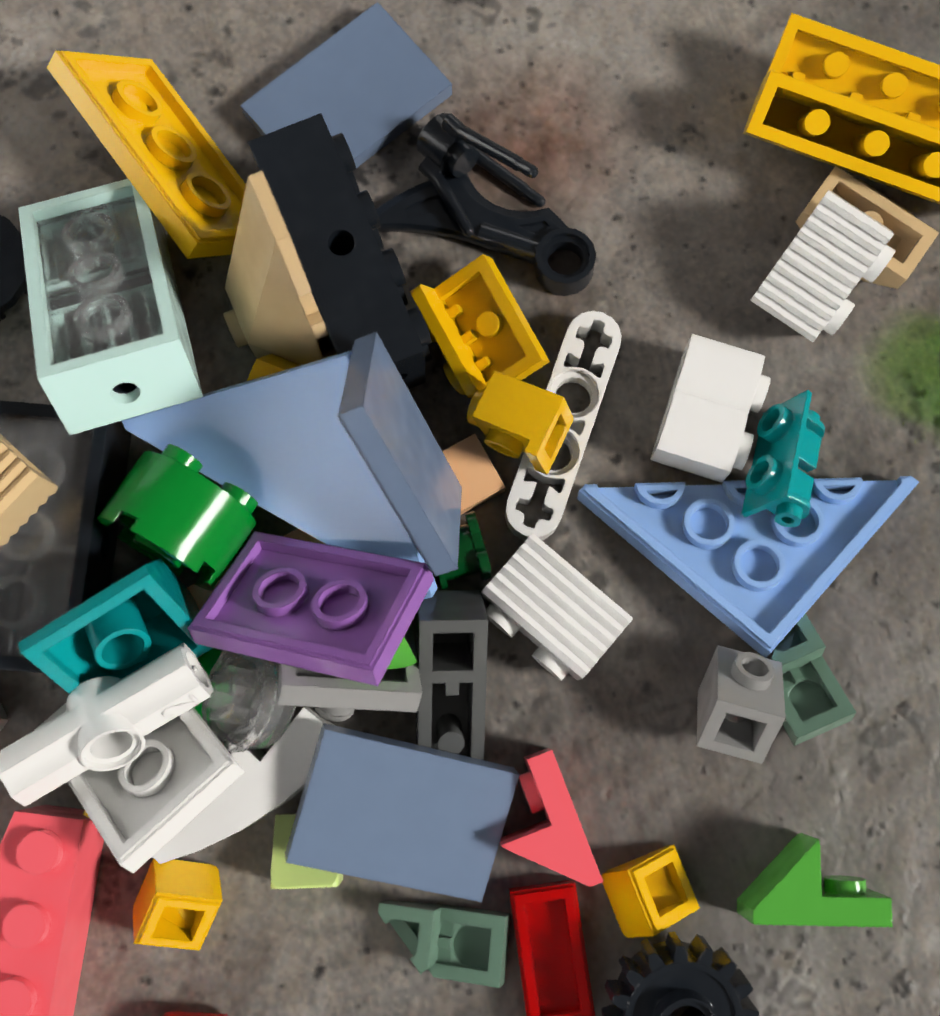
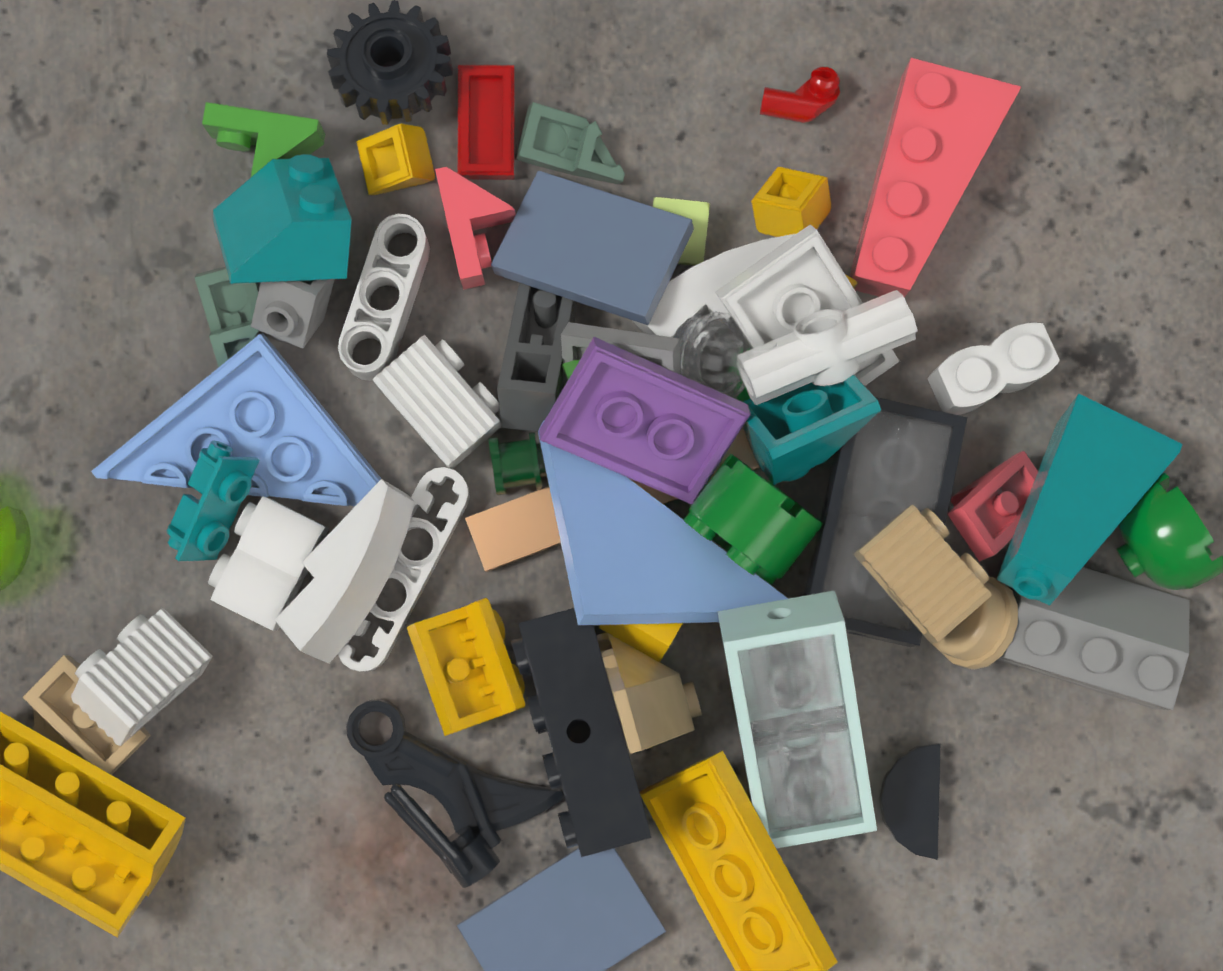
camera: 175 degrees left, 5 degrees up
(402, 453) = (548, 531): sand blue tile -> none
(521, 419) = (443, 567): yellow brick -> none
(622, 401) = (348, 573): none -> white slope
(648, 752) = (381, 270): none -> white beam
(769, 784) = (285, 224): none -> teal slope

